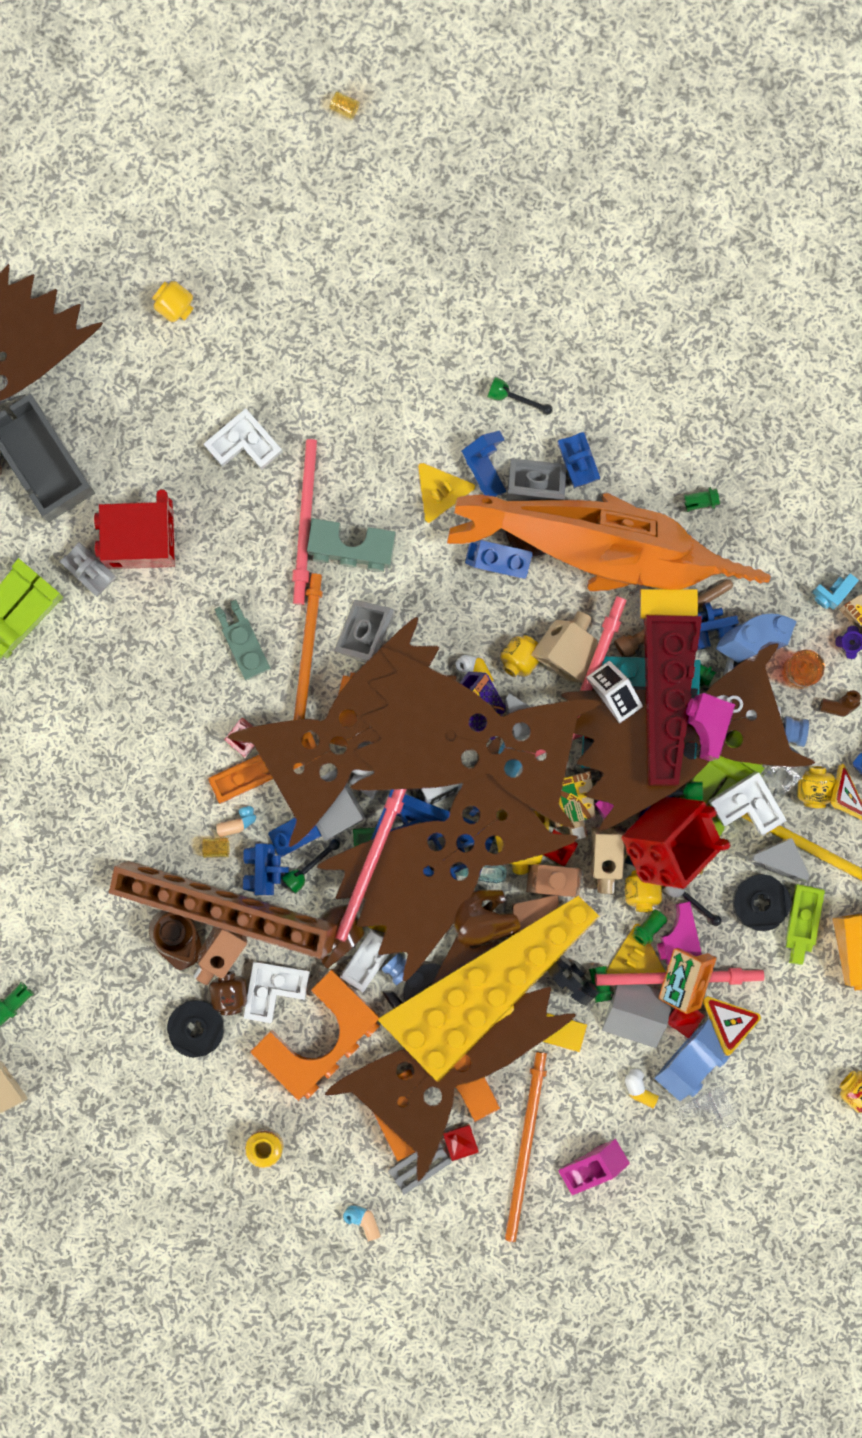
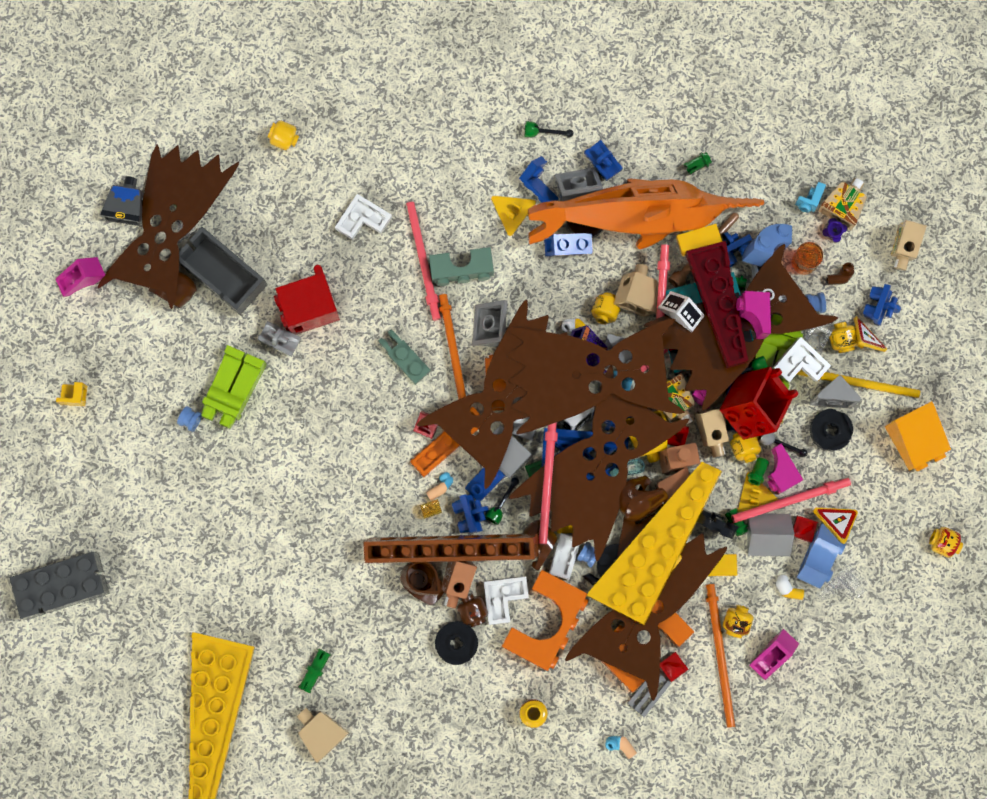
camera: 15 degrees left, 5 degrees down
(561, 1111) = (738, 621): none -> yellow head
(687, 980) = (797, 499): panel -> none
(803, 921) = (865, 434): lime hinge -> none

